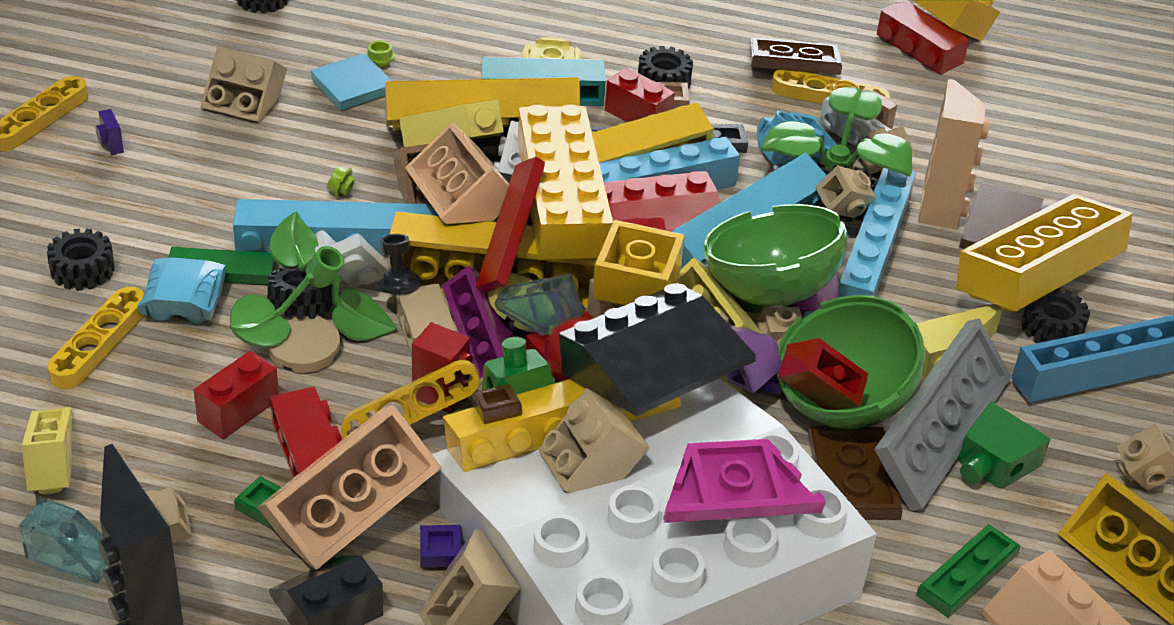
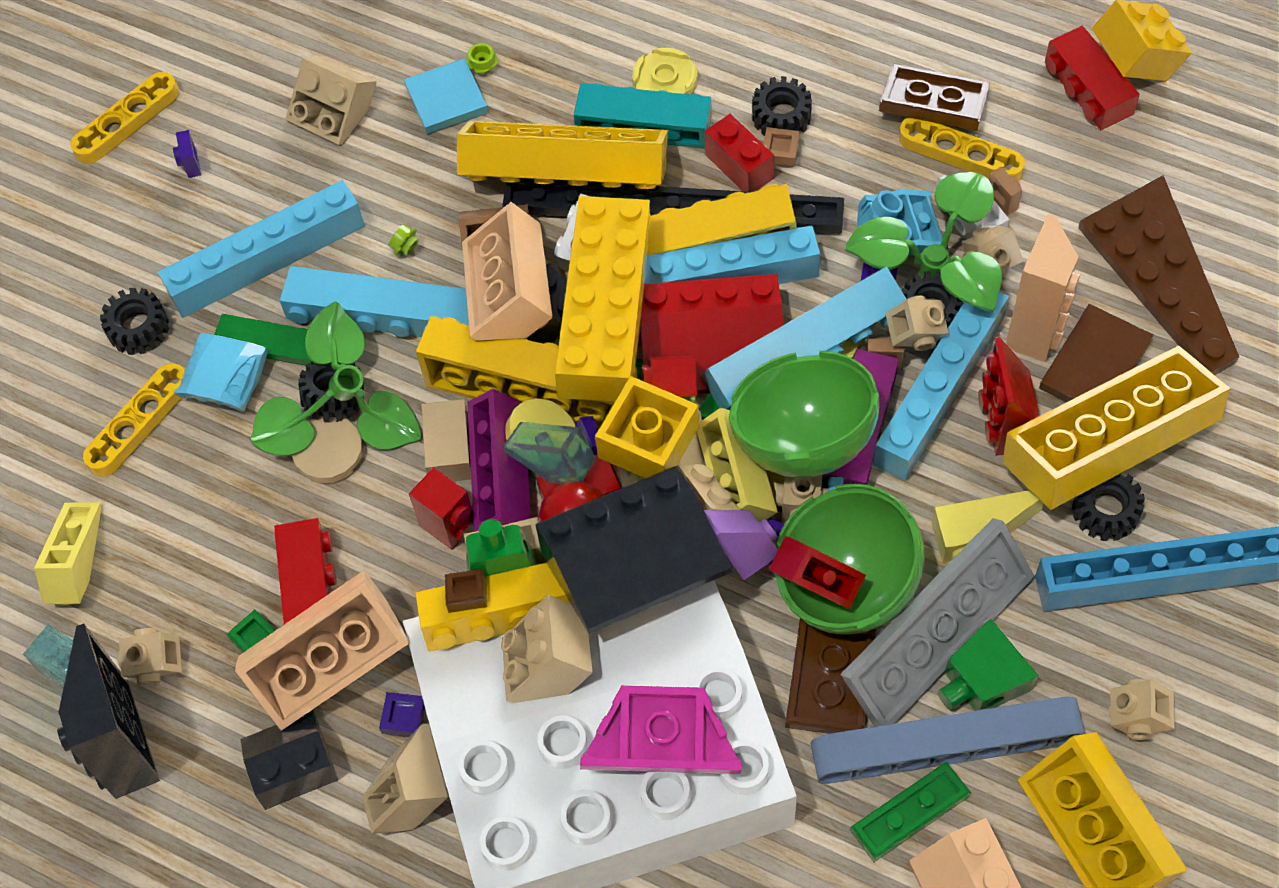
camera: 20 degrees right, 20 degrees up
(200, 195) = (262, 248): none -> medium azure brick
(236, 394) = (248, 512): red brick -> none
(361, 260) = (380, 359): white bracket -> none
(398, 278) = (425, 391): black piece -> none
(407, 398) = (404, 556): yellow beam -> none
(474, 119) = (527, 188): light yellow slope -> none
(510, 225) = (533, 357): red tile -> none
(939, 239) = (1006, 394): none -> red slope
(969, 507) = (946, 738): none -> sand blue beam
(1033, 158) = (1157, 261): none -> reddish brown wing

